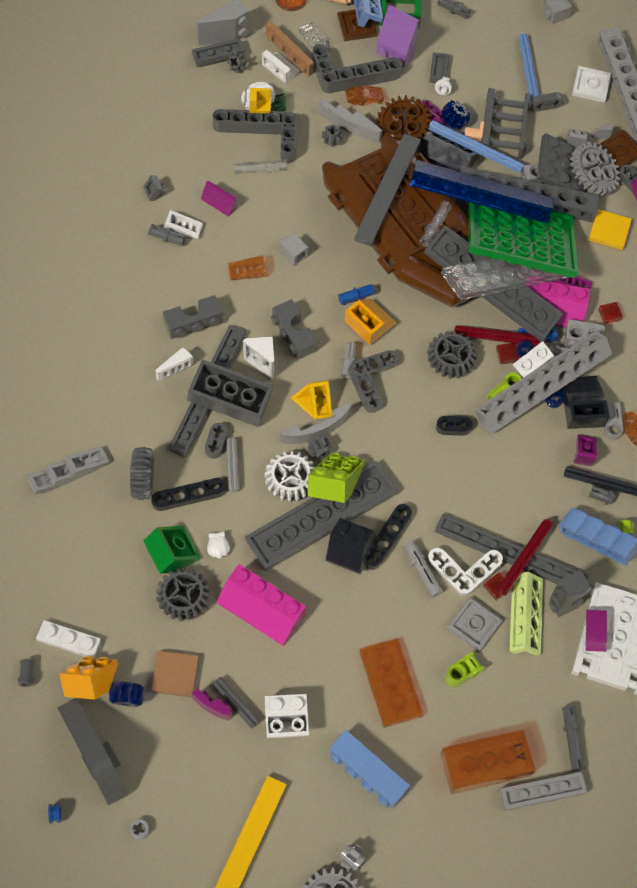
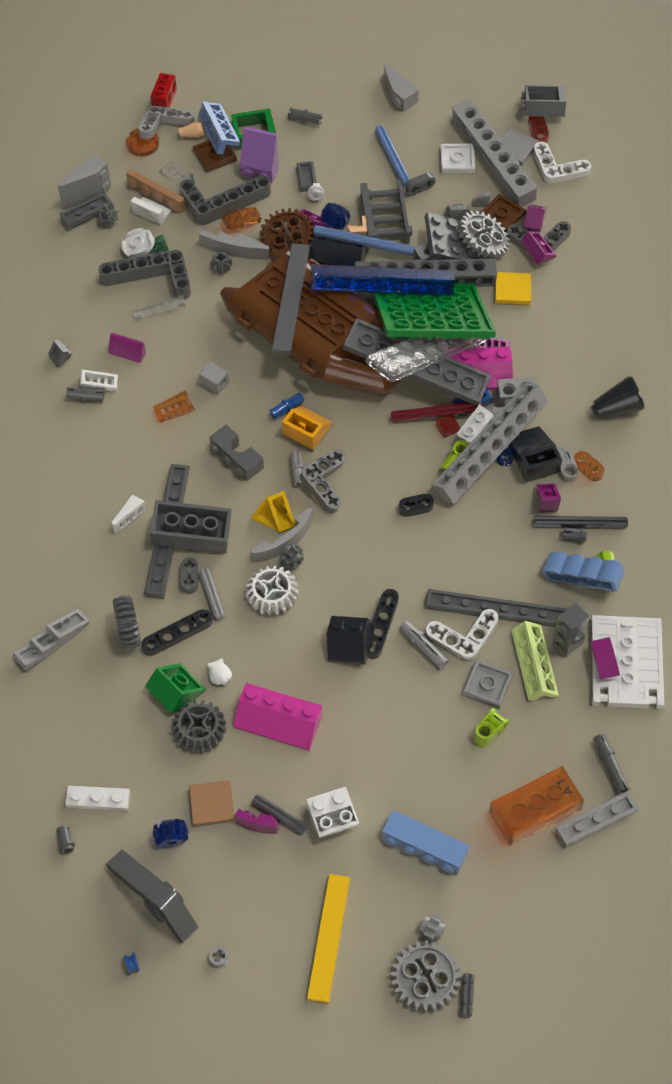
camera: 10 degrees left, 5 degrees down
(88, 677) = (129, 826): light orange slope -> none
(180, 324) = (122, 474): dark grey arch -> none
(260, 100) = (141, 245): yellow panel -> none
(260, 354) = (210, 483): white slope -> none
(318, 518) = (310, 620): dark grey plate -> none
(335, 477) = (316, 580): lime slope -> none
(391, 683) = (423, 758): clear orange plate -> none
(432, 229) = (345, 324): clear pin -> none
(450, 360) = (395, 432): dark grey gear -> none
(492, 585) = (500, 642): clear red plate -> none
(525, 557) = (518, 609): dark red axle -> none
(526, 344) = (464, 412): clear blue bush -> none
(610, 313) = (535, 365): clear red plate -> none

